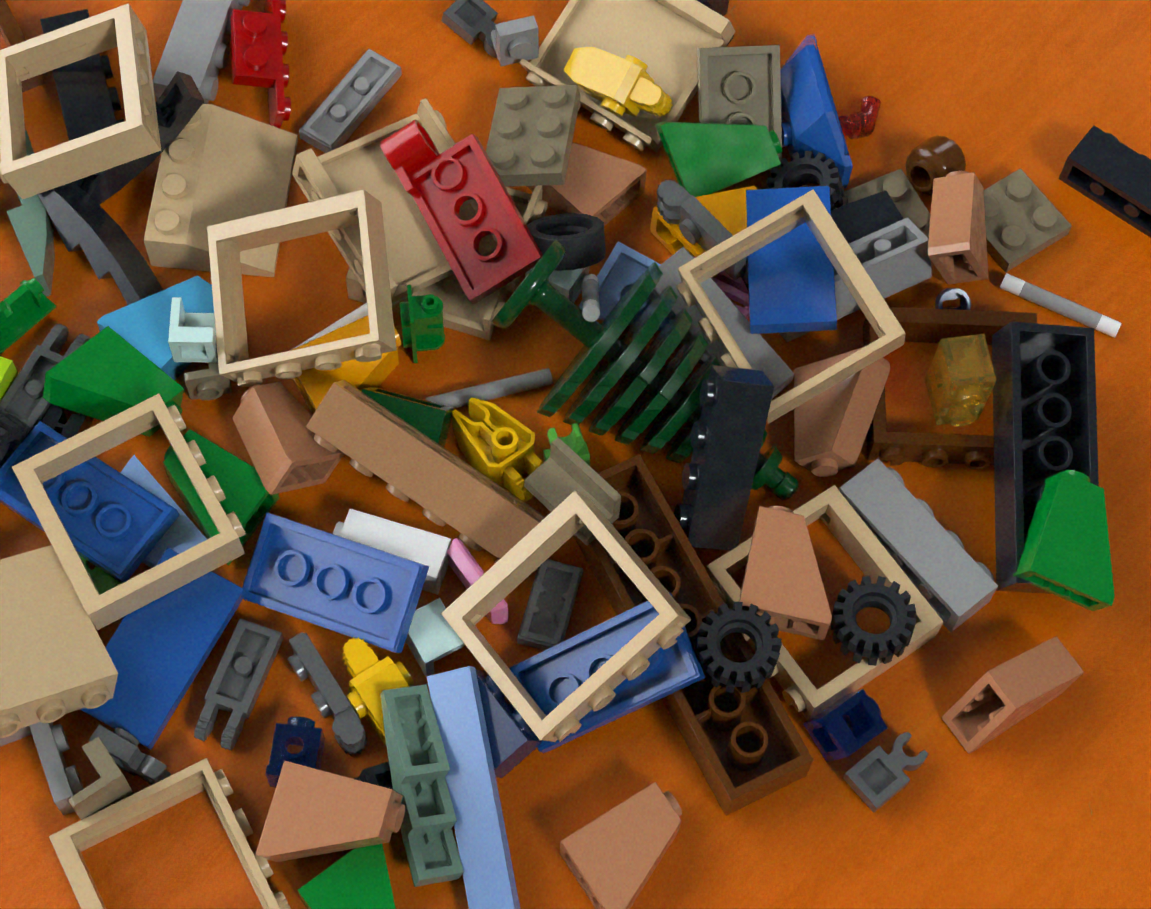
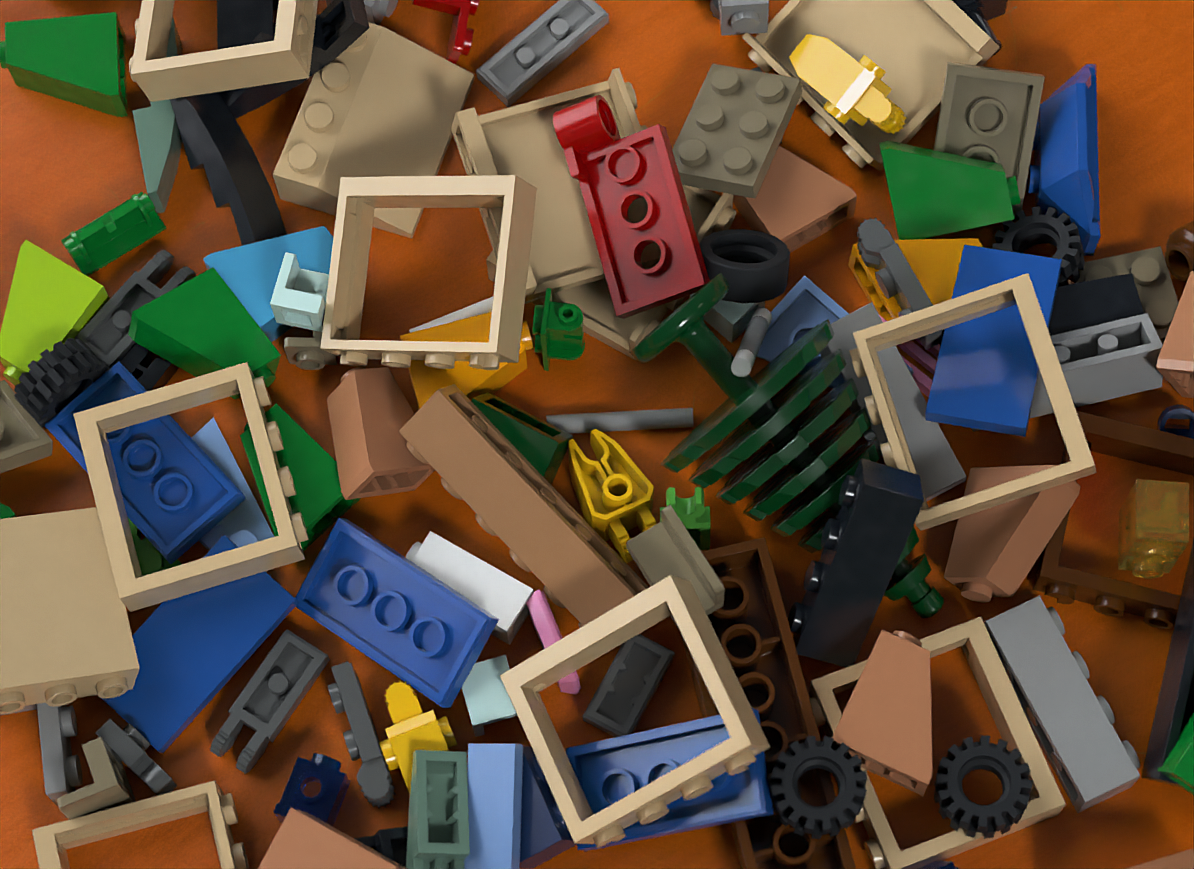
camera: 20 degrees right, 5 degrees up
(863, 122) = (1128, 181): clear red arm -> none

